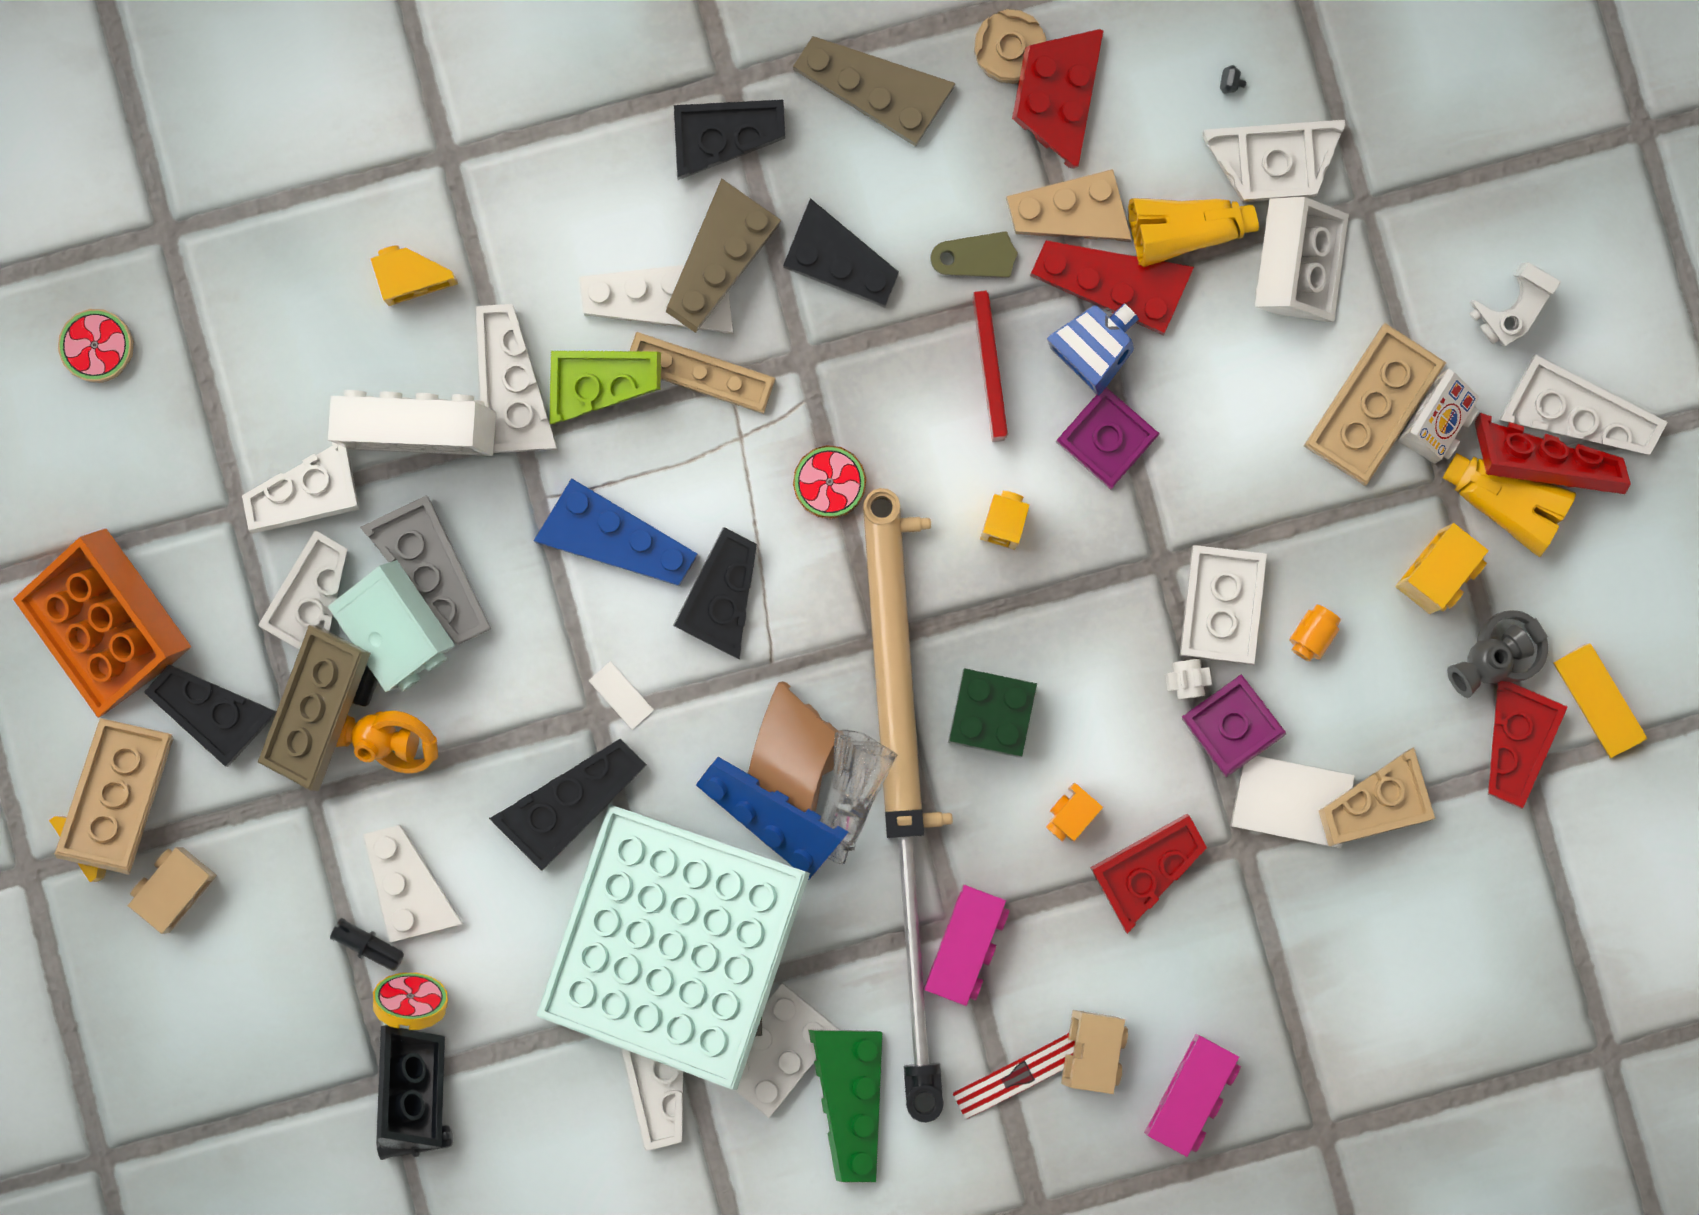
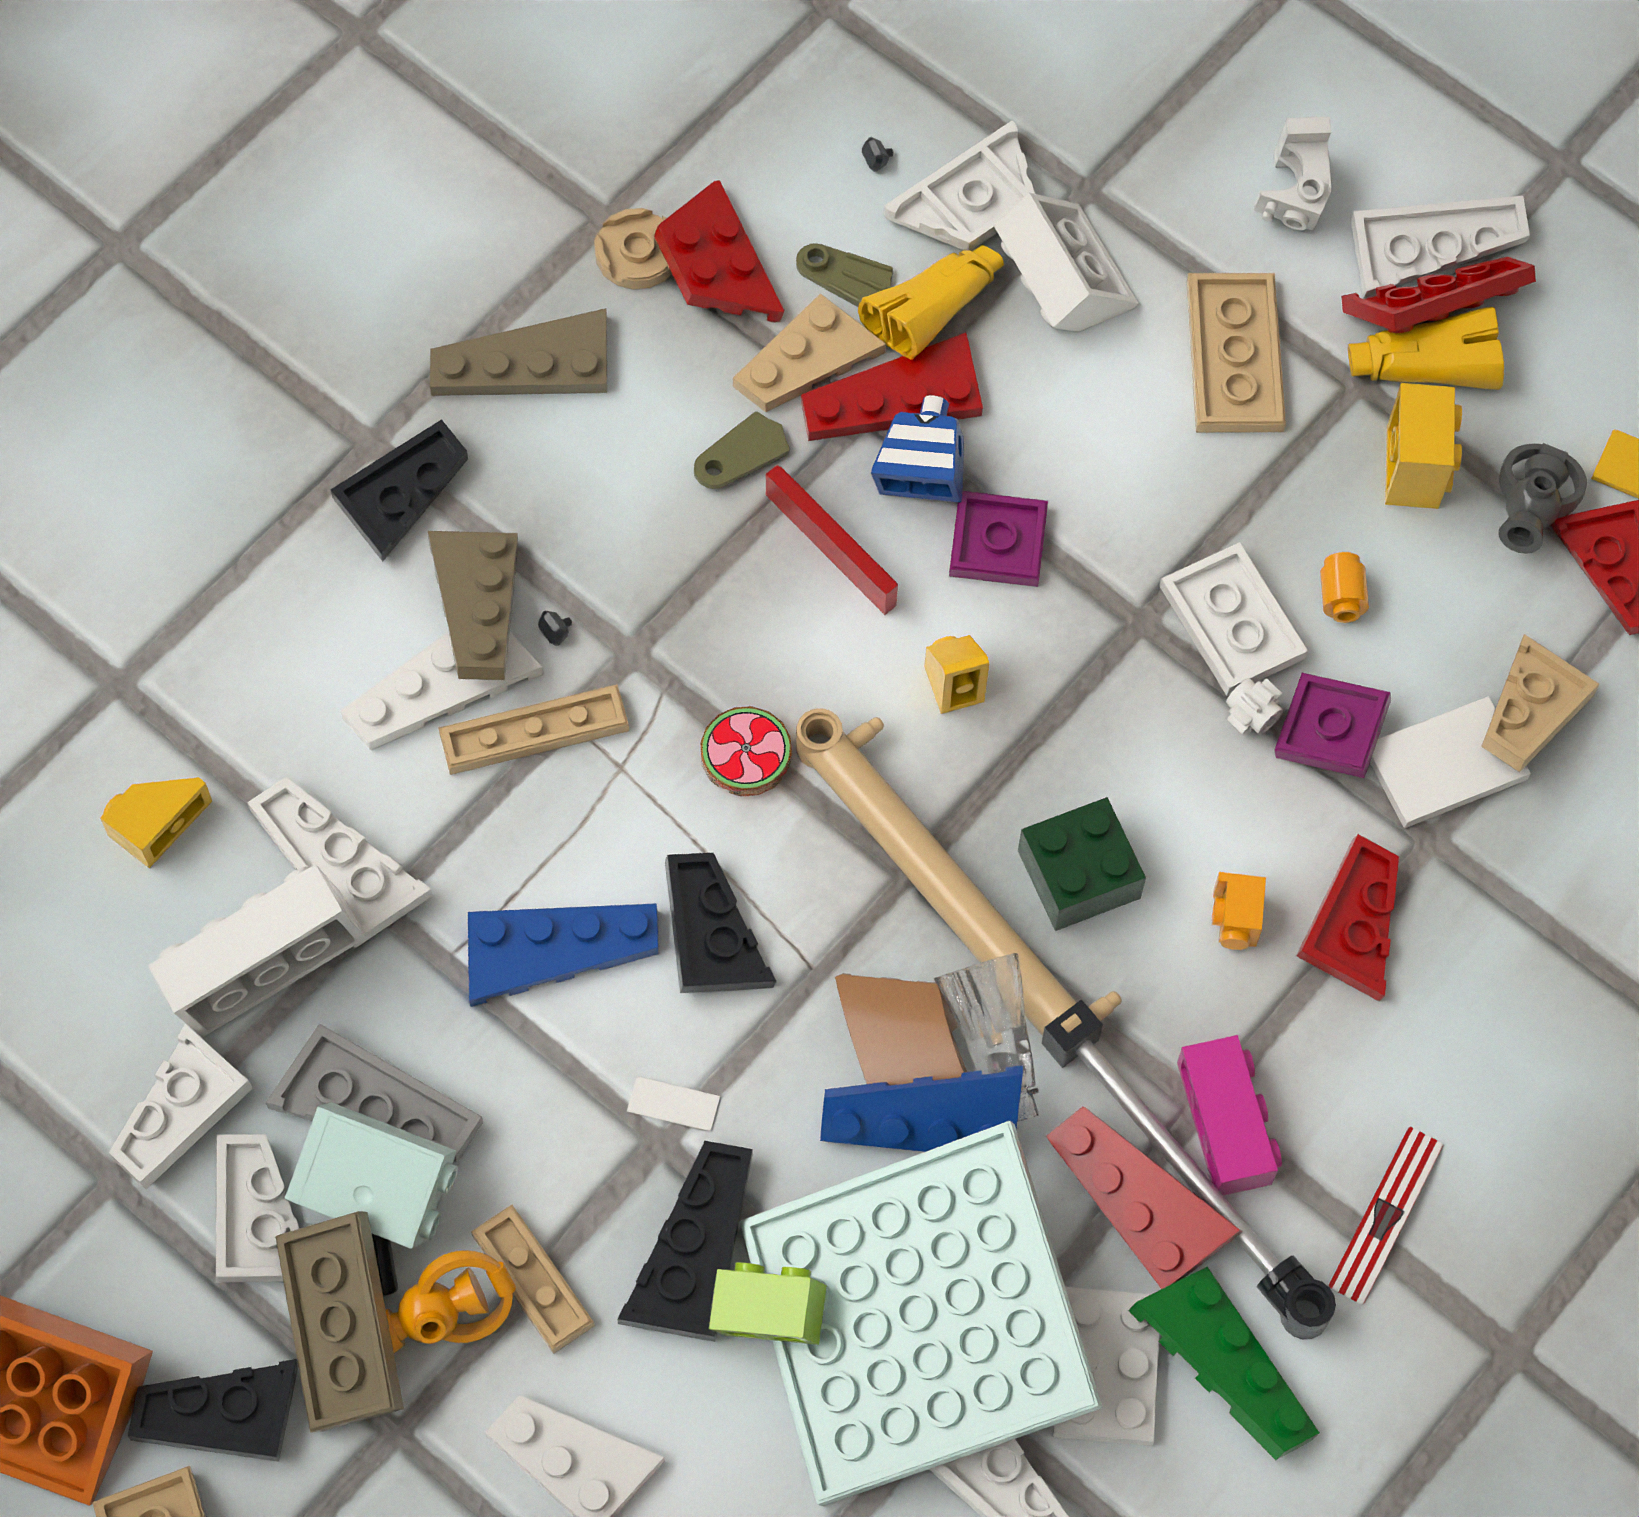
camera: 35 degrees left, 20 degrees down
(456, 753) = (538, 1283): none -> tan tile
(585, 876) = (768, 1305): none -> lime brick
(599, 379) = (432, 793): lime wing -> none
(761, 306) = (554, 627): none -> black rock
(838, 258) = (603, 536): black wing -> none
(871, 974) = (1150, 1209): none -> wing
(1095, 1052) = (1445, 1134): tan brick -> none
(1144, 163) = (843, 272): none -> olive piece
(1193, 1096) = (1578, 1113): dark pink brick -> none
(1440, 417) = (1308, 317): white slope -> none

